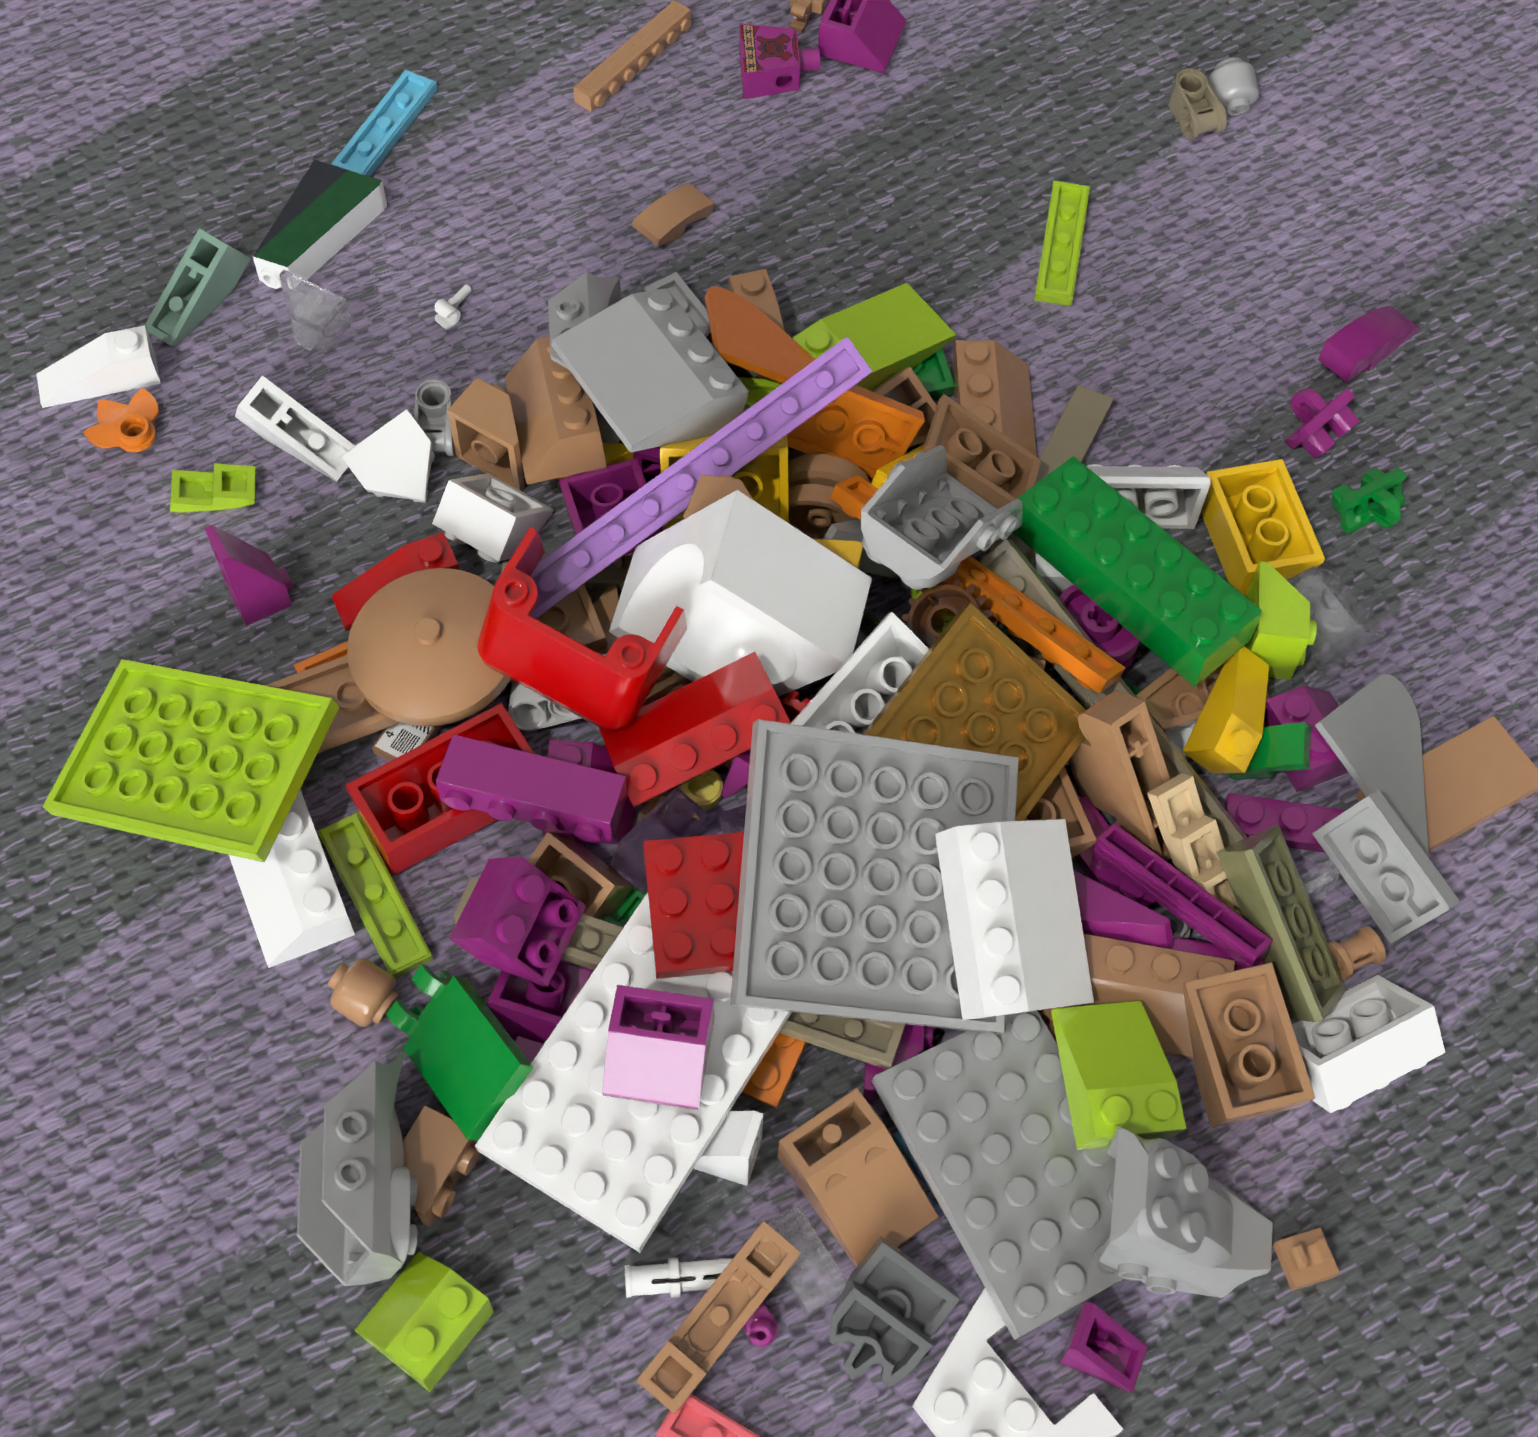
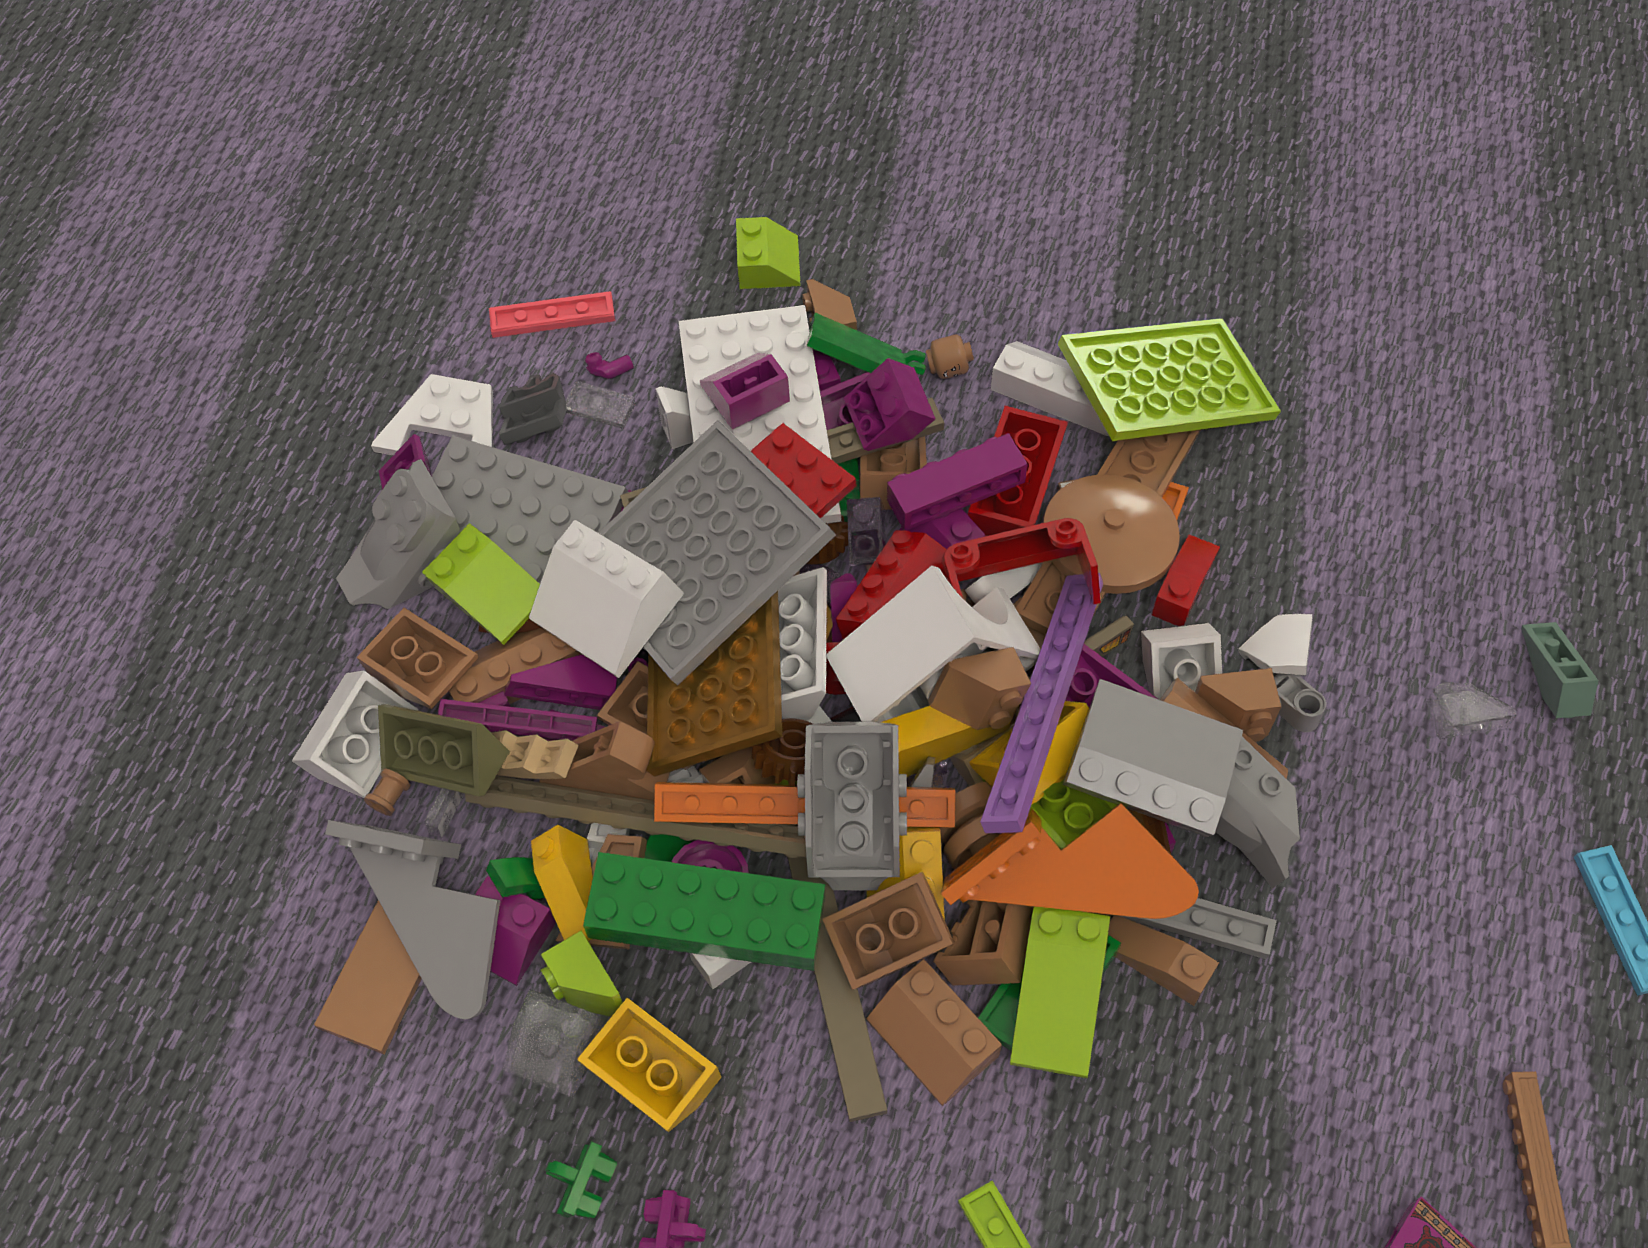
camera: 145 degrees right, 0 degrees up
(103, 367) = (1533, 570): white slope -> none
(121, 421) = (1479, 552): orange plate -> none
(207, 491) = (1370, 552): lime slope -> none
(250, 576) = (1267, 489): magenta slope -> none
(293, 428) = (1370, 620): white slope -> none
(318, 221) = (1553, 783): slope -> none
(356, 1183) = (852, 264): light grey slope -> none
(375, 896) = (983, 404): lime tile -> none
(447, 311) = (1389, 792): white hand -> none
(640, 1278) = (658, 354): white pin -> none
(669, 215) = (1331, 1016): medium nougat slope -> none
(718, 1317) = (620, 338): medium nougat slope -> none
(856, 1177) = (606, 449): medium nougat slope -> none
(1166, 495) = (763, 1027): white slope -> none
(1295, 820) = (470, 868): magenta plate -> none
(1306, 1259) = (318, 597): medium nougat tile -> none

